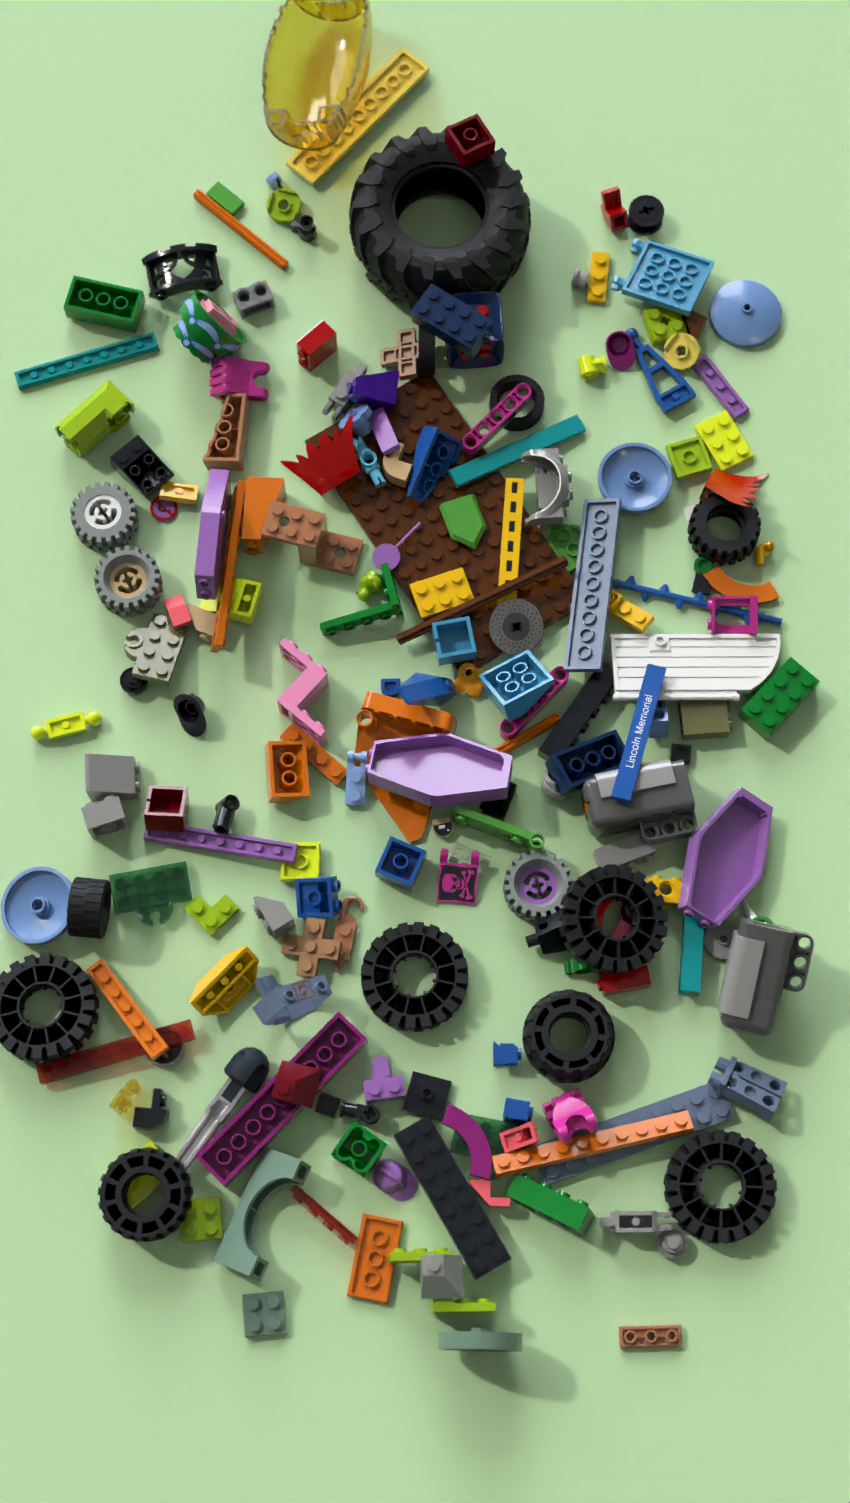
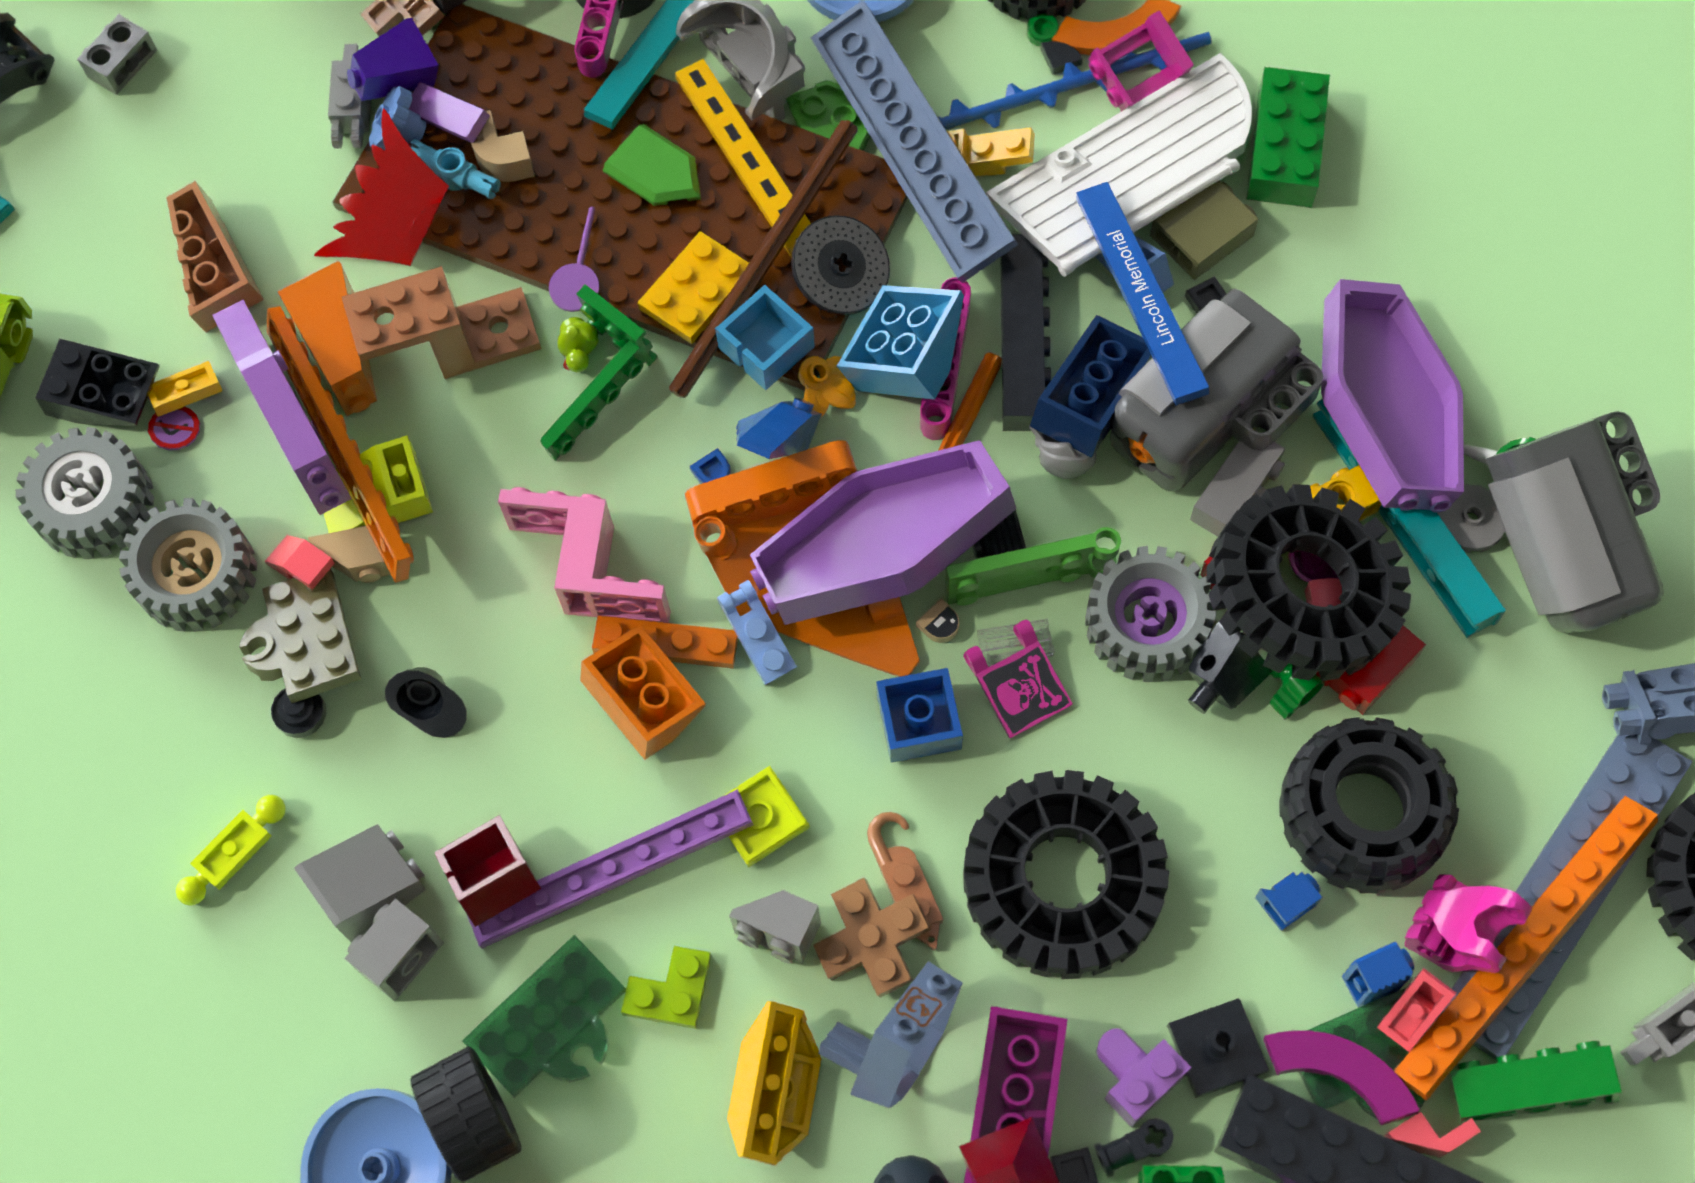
camera: 30 degrees left, 5 degrees down
(207, 328) = (71, 123): piece -> none
(225, 813) = (587, 817): black piece -> none
(237, 376) = (162, 165): dark pink piece -> none
(316, 345) = (259, 58): red piece -> none
(318, 896) = (826, 850): blue plate -> none
(432, 458) = (546, 104): blue wedge -> none

